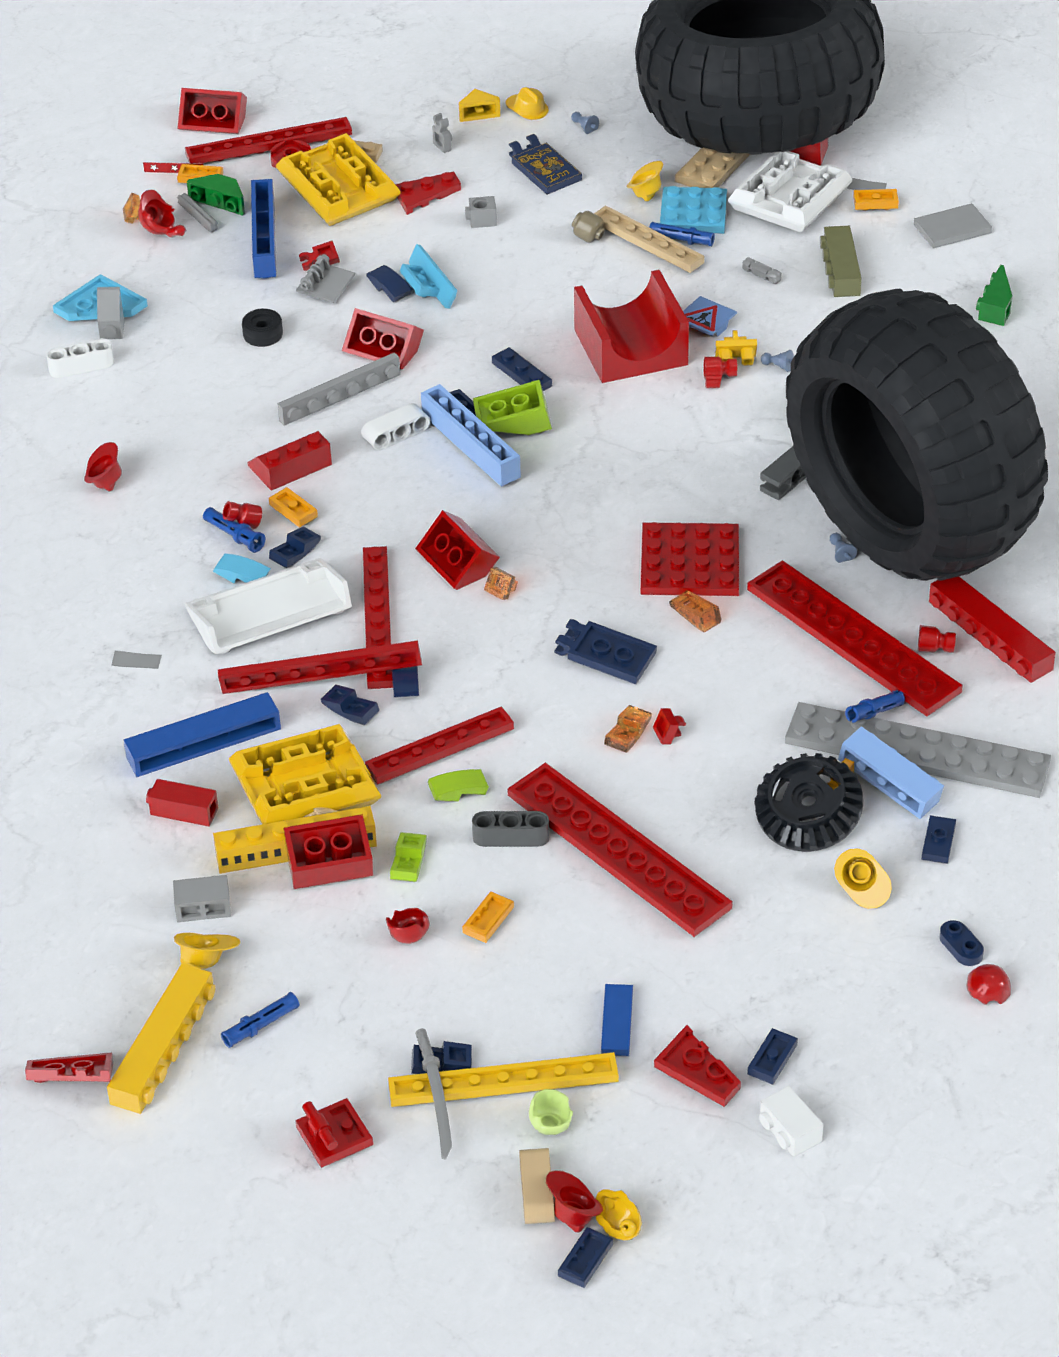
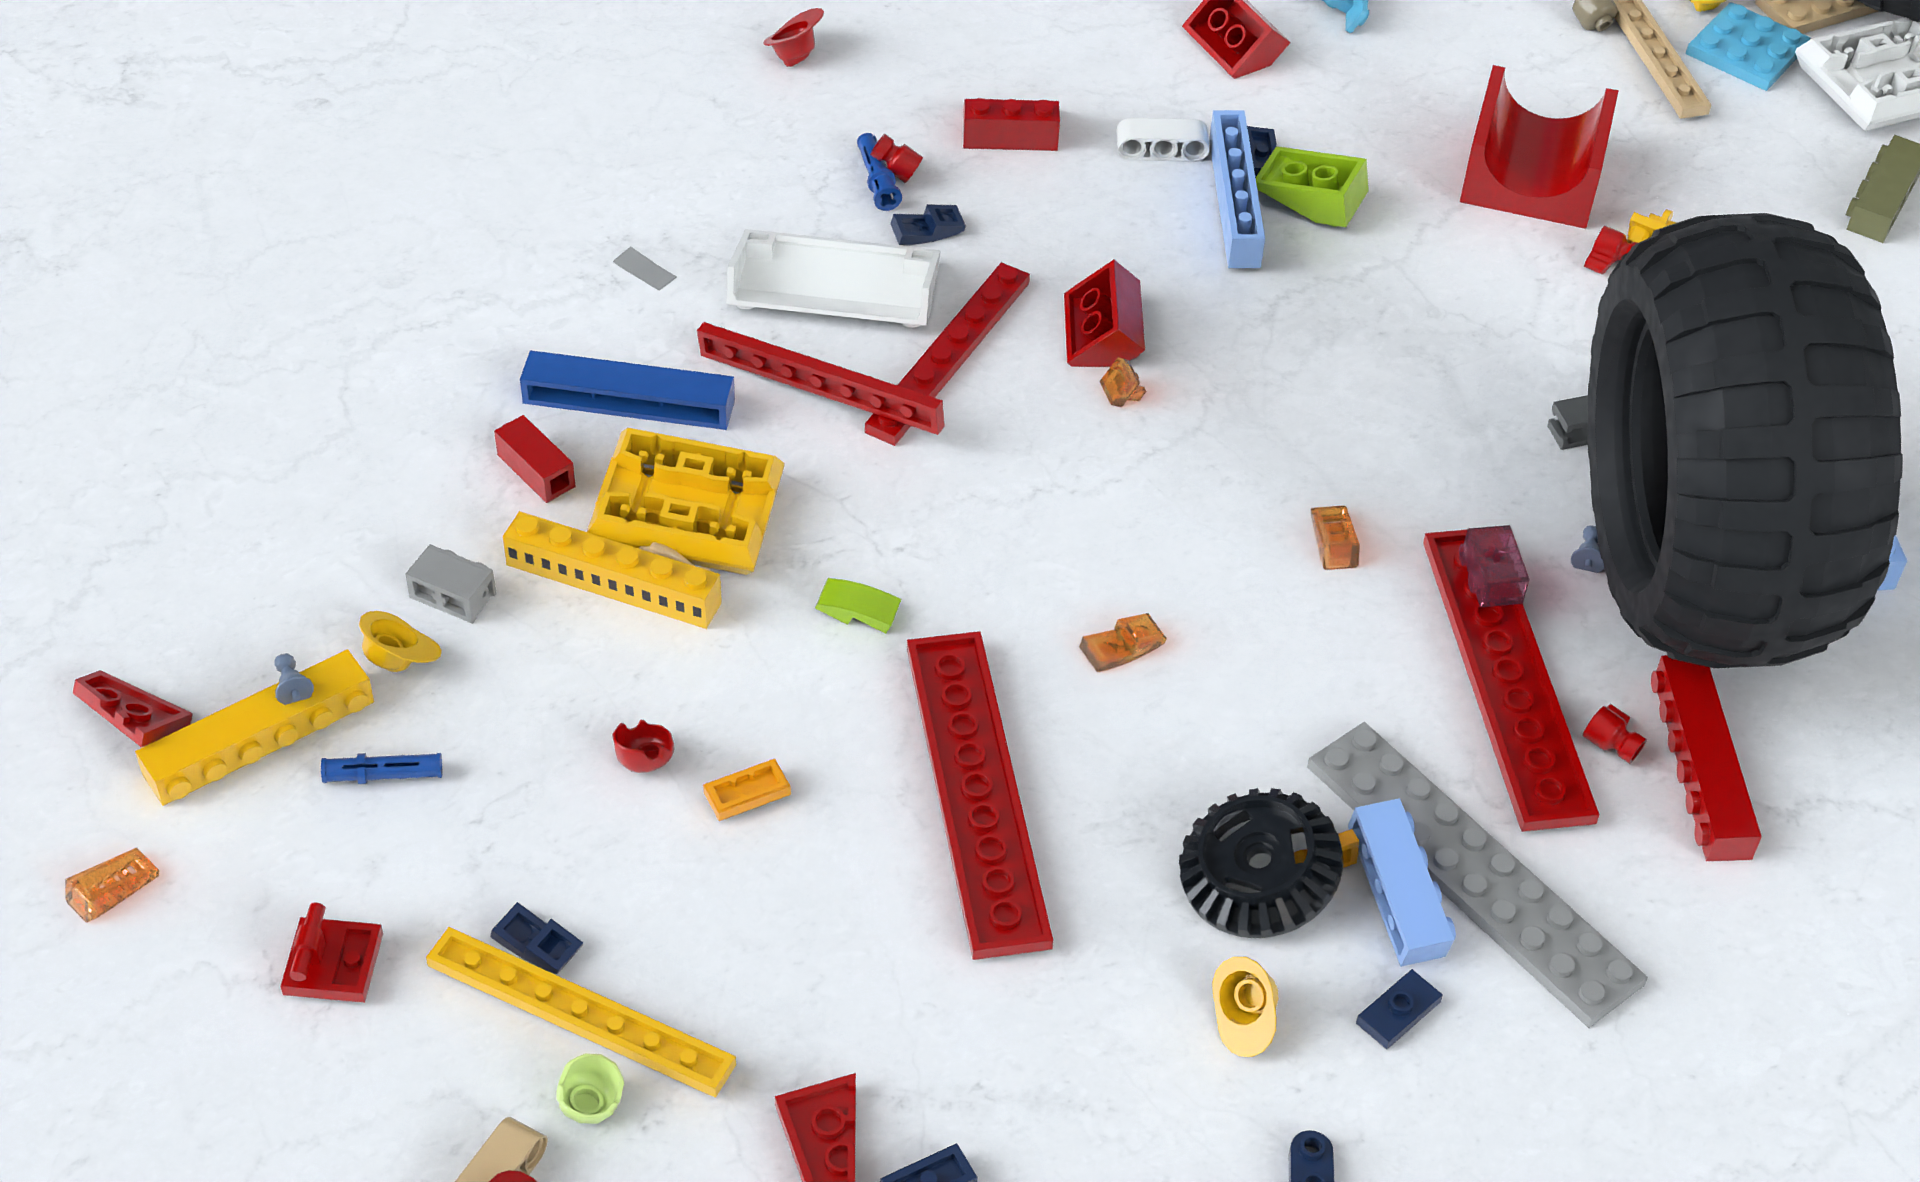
camera: 30 degrees right, 5 degrees up
(153, 1171) = (91, 901): none -> clear orange slope
(172, 997) = (292, 684): none -> sand blue piece
(240, 567) = (843, 219): medium azure slope -> none
(293, 507) = (964, 177): light orange plate -> none
(328, 851) = (627, 604): red slope -> none
(338, 389) = (1136, 66): light grey plate -> none
(347, 704) = (823, 441): dark blue slope -> none
(405, 682) = (909, 446): dark blue slope -> none
(408, 857) = (727, 662): lime slope -> none
(430, 1065) = (507, 940): light grey sword -> none
(439, 745) = (879, 543): red plate -> none
(510, 828) = (868, 692): dark grey beam -> none
(519, 368) = (1372, 142): dark blue plate -> none
(606, 650) = (1180, 531): dark blue tile -> none
(617, 1019) = (784, 1014): blue tile -> none
(667, 725) = (1172, 666): red tile -> none
(684, 234) = (1715, 73): blue pin -> none
(690, 558) = (1383, 468): red plate -> none
(708, 316) = (1653, 179): medium blue piece -> none
(761, 270) = (1775, 155): light grey axle -> none
(804, 579) = (1494, 566): none -> clear pink brick
(869, 708) = (1440, 779): blue pin -> none

